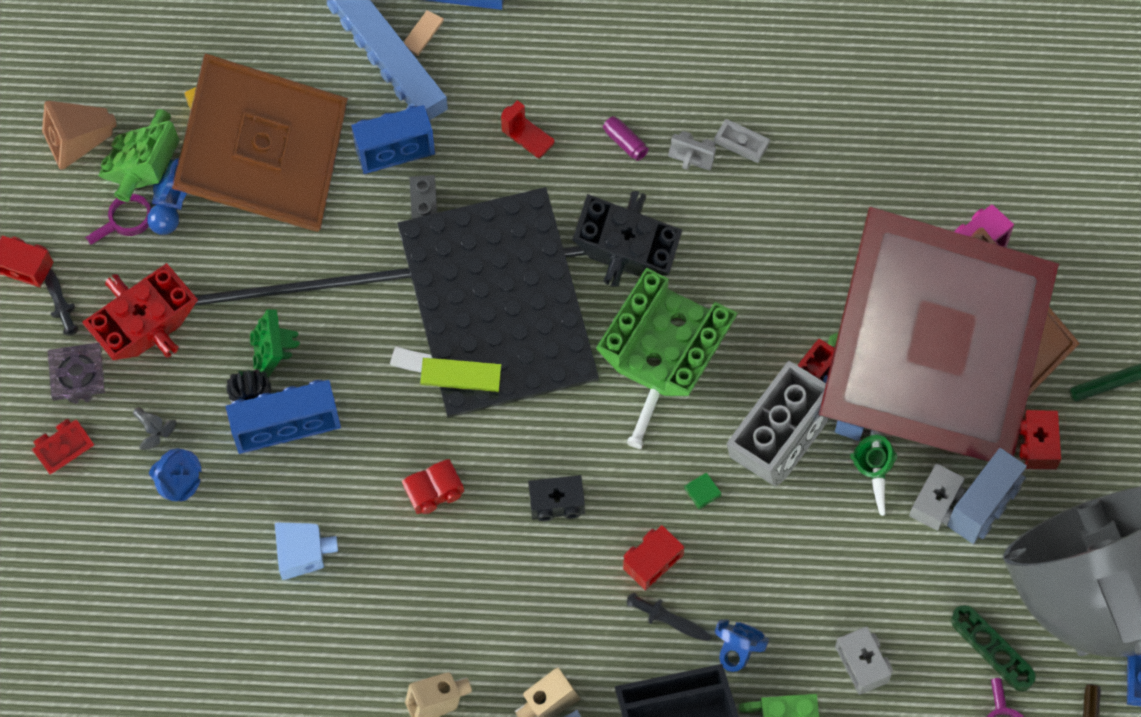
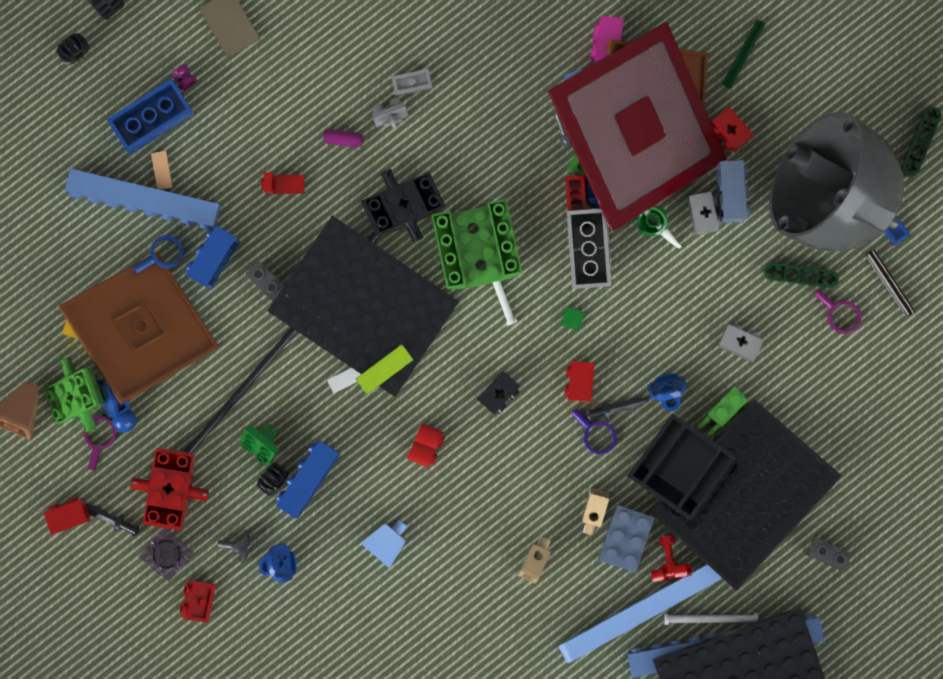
camera: 40 degrees left, 20 degrees up
(335, 98) = (151, 260): none -> blue piece
(621, 611) = (587, 425): none -> dark purple piece

